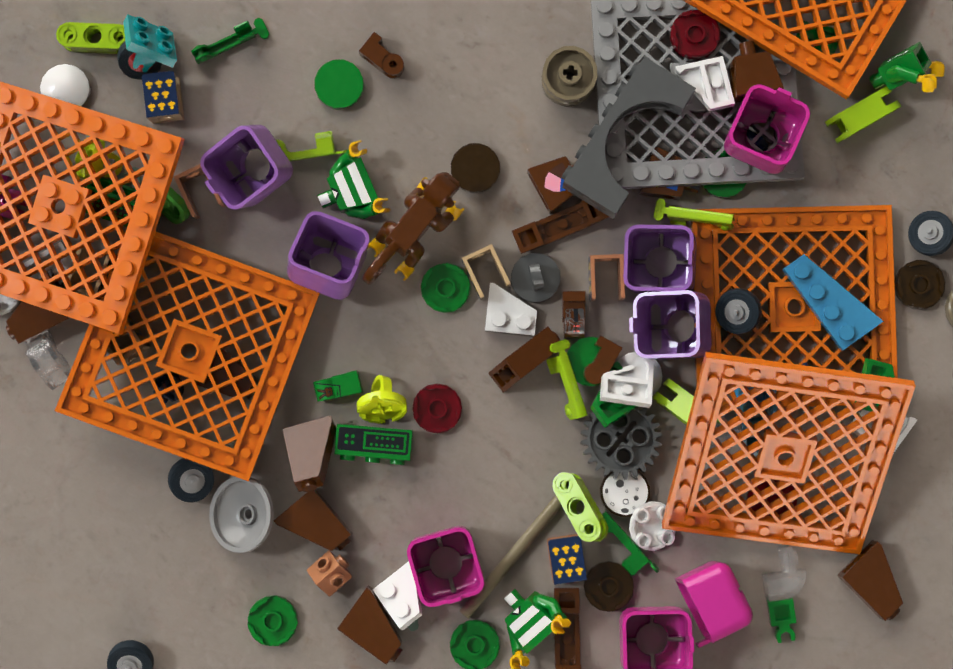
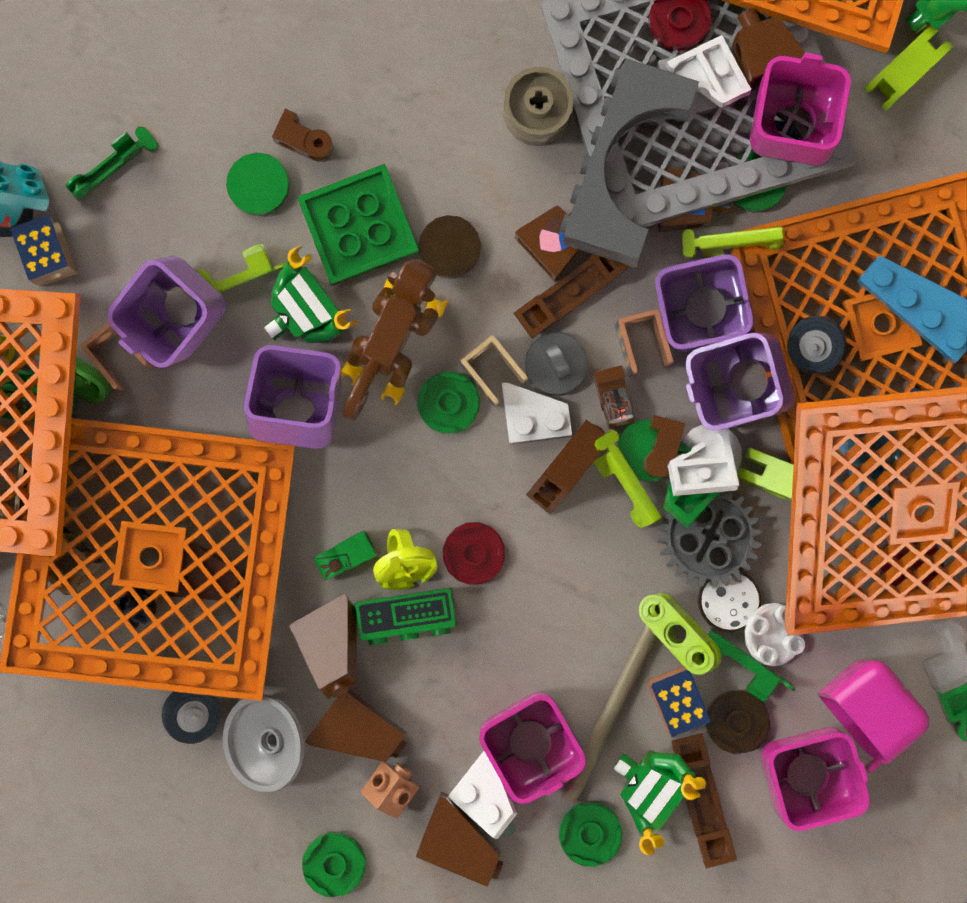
camera: 10 degrees left, 0 degrees up
(408, 134) = (358, 224): none -> green plate

